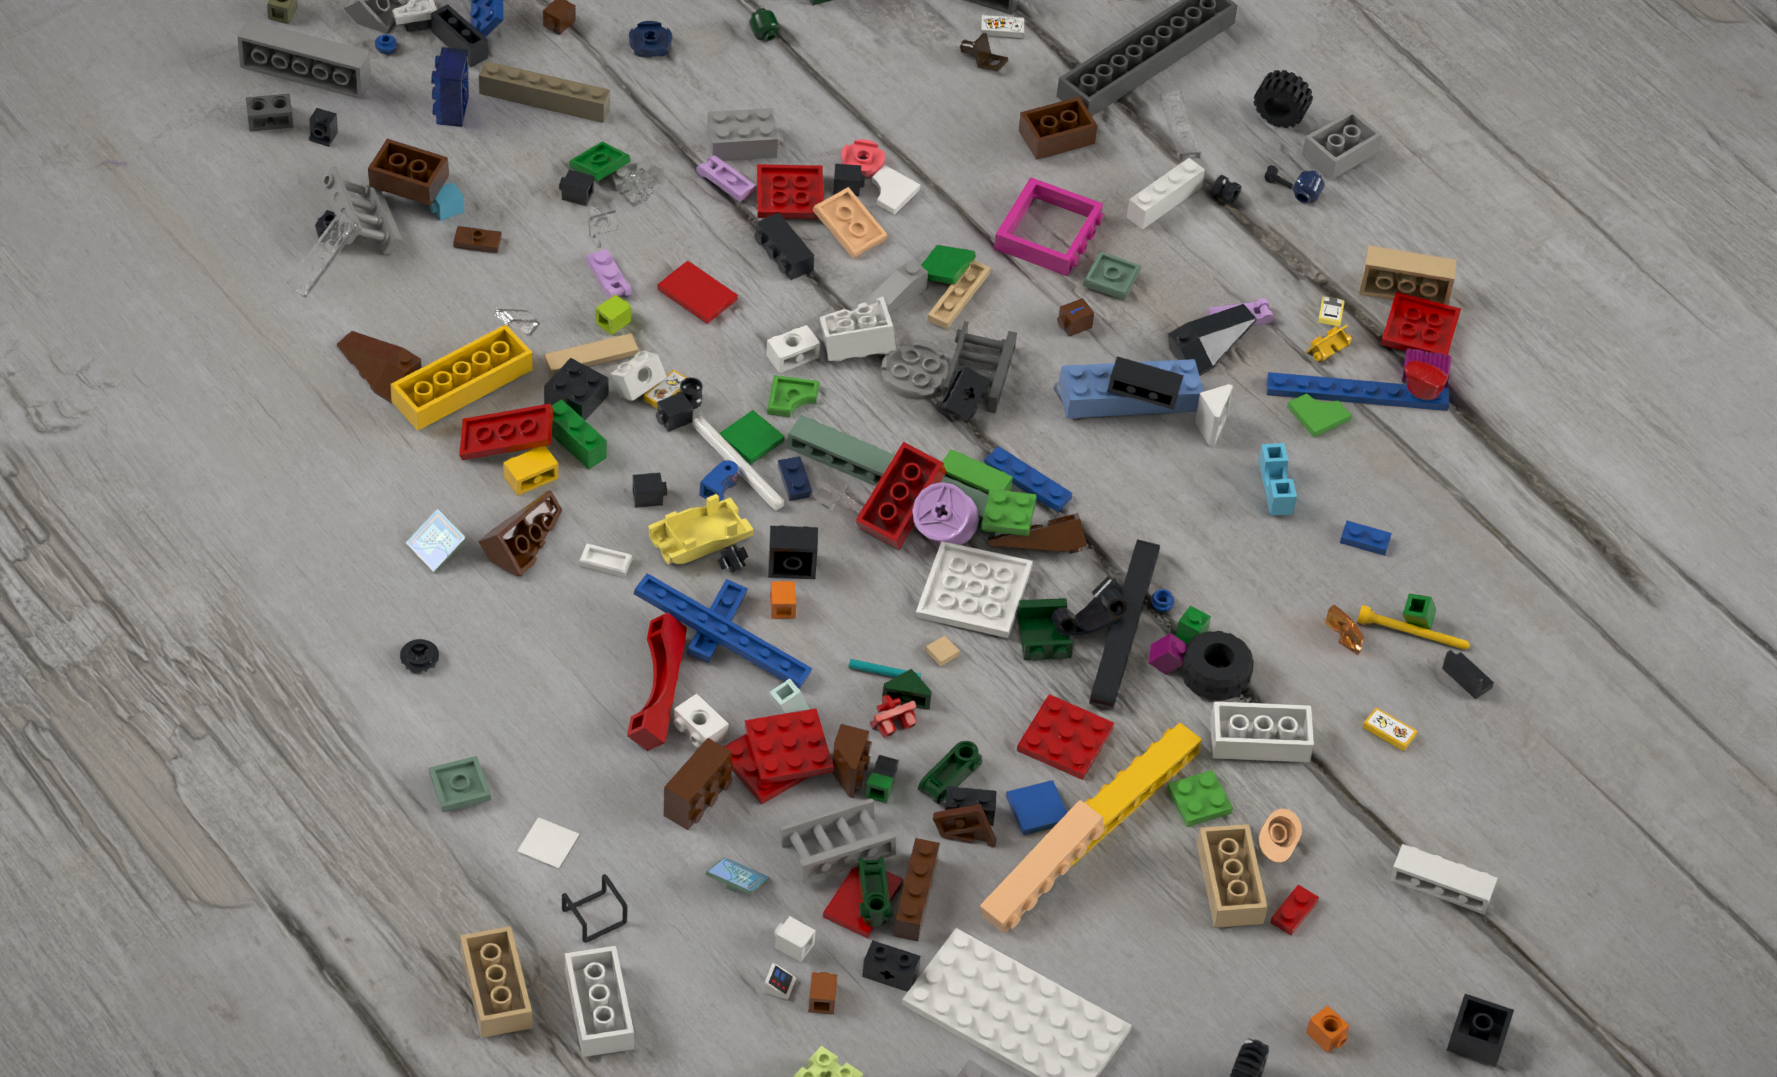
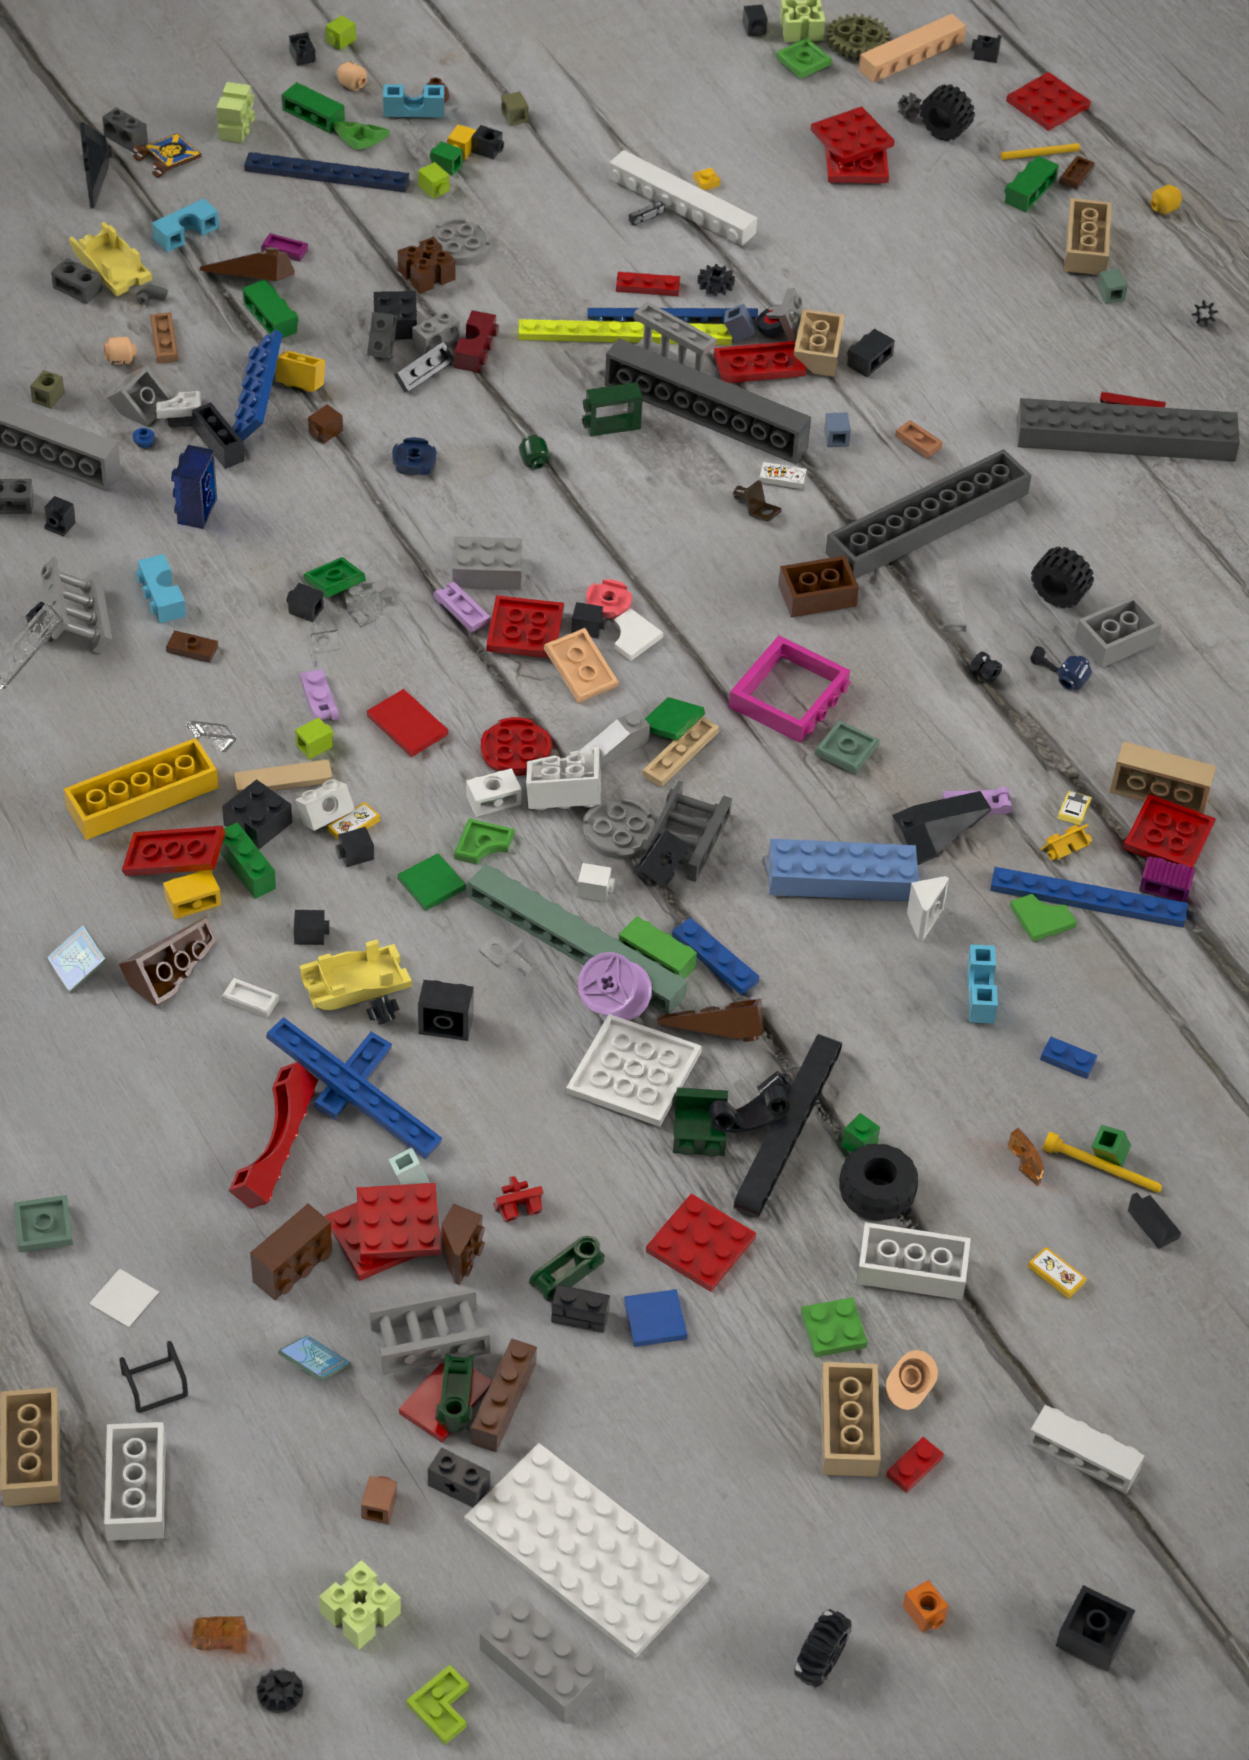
camera: 10 degrees right, 0 degrees up
(378, 361) = (60, 763): reddish brown wedge -> none
(408, 172) = (130, 570): reddish brown brick -> none
(419, 647) = (35, 1071): black gear -> none
(544, 91) = (293, 500): dark tan brick -> none
(692, 389) = (377, 827): black wheel -> none
(700, 721) = (306, 1173): white brick -> none
(719, 480) = (387, 924): blue leg -> none
(744, 468) = (411, 908): white axle -> none
(779, 982) = (335, 1481): slope -> none
(783, 600) = (426, 1060): orange brick -> none
(784, 246) = (507, 683): black brick -> none
(794, 478) = (467, 930): dark blue plate -> none
(794, 938) = (361, 1435): white brick -> none
(802, 303) = (513, 744): none -> red tile
(876, 668) = (520, 1148): teal bar -> none
(882, 778) = (493, 1267): leg -> none
(891, 504) = (557, 969): red brick -> none
(904, 422) = (595, 882): none -> white brick
(909, 688) = (539, 1171): dark green slope -> none
(942, 651) = (586, 1133): tan tile -> none
(965, 824) = (570, 1328): reddish brown wing -> none
(1009, 512) = (683, 991): bright green plate -> none
(1042, 866) = (643, 1386): light nougat brick -> none
(1075, 317) = (799, 788): reddish brown brick -> none
(1143, 778) = (751, 1313): yellow brick -> none
(1145, 382) = (854, 866): black brick -> none
(1162, 600) = (837, 1098): blue plate -> none
(1165, 193) = (920, 665): white brick -> none
(1167, 653) = (826, 1163): magenta brick -> none
(1424, 380) = (1160, 892): red hair -> none

